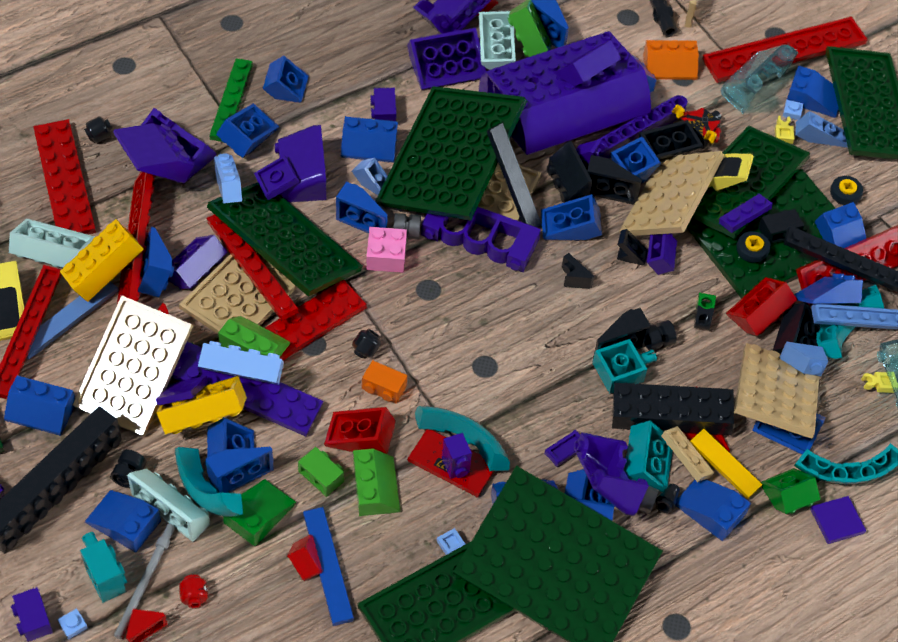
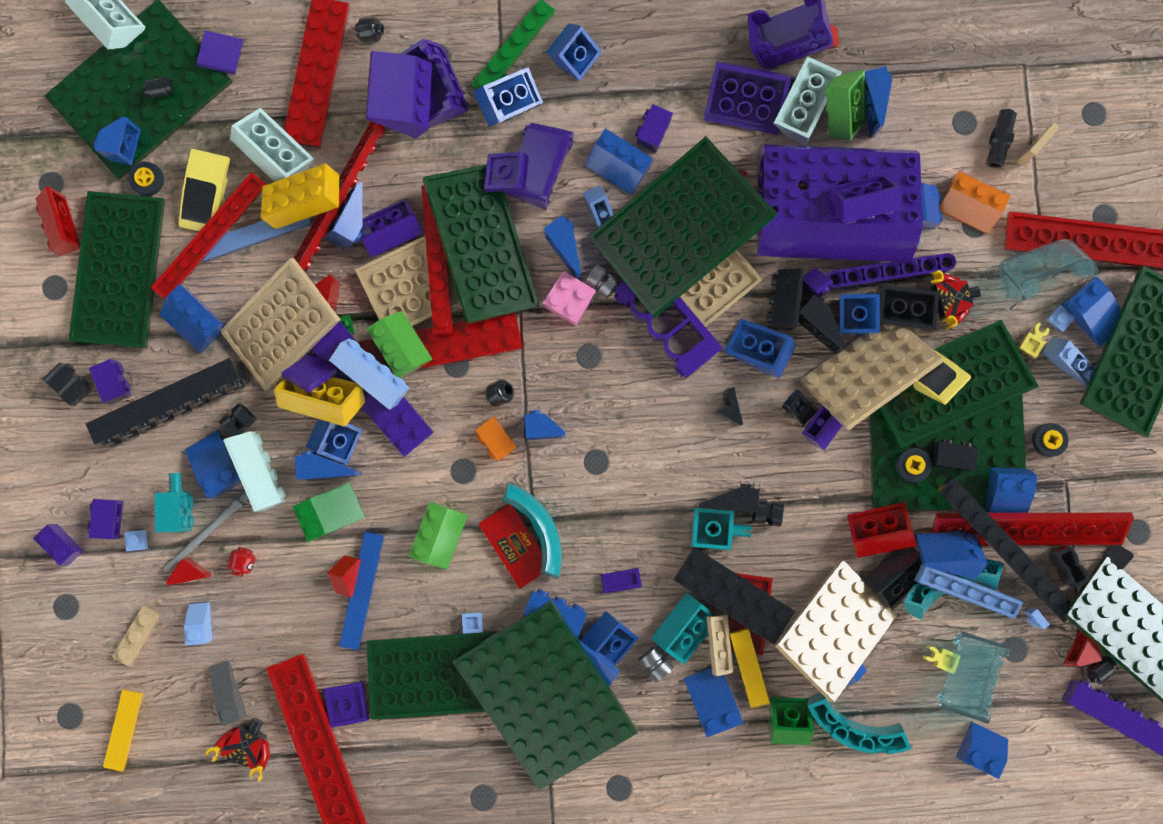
camera: 30 degrees right, 30 degrees up
(201, 491) = (285, 474): teal brick -> none
(228, 178) = (456, 155): light blue brick -> none
(321, 471) = (397, 501): bright green brick -> none
(361, 429) = (450, 478): red slope -> none
(423, 350) = (541, 427): none -> blue slope
(456, 456) = (513, 554): dark purple brick -> none
(513, 175) = (721, 286): tile -> none
(604, 467) = (631, 640): dark purple windscreen -> none
(667, 499) = (679, 675): black cone -> none
(704, 311) = (825, 508): black leg -> none
(745, 213) = (926, 430): dark purple plate -> none
(805, 358) = (883, 610): medium blue slope -> none
(838, 520) = (815, 766): dark purple tile -> none

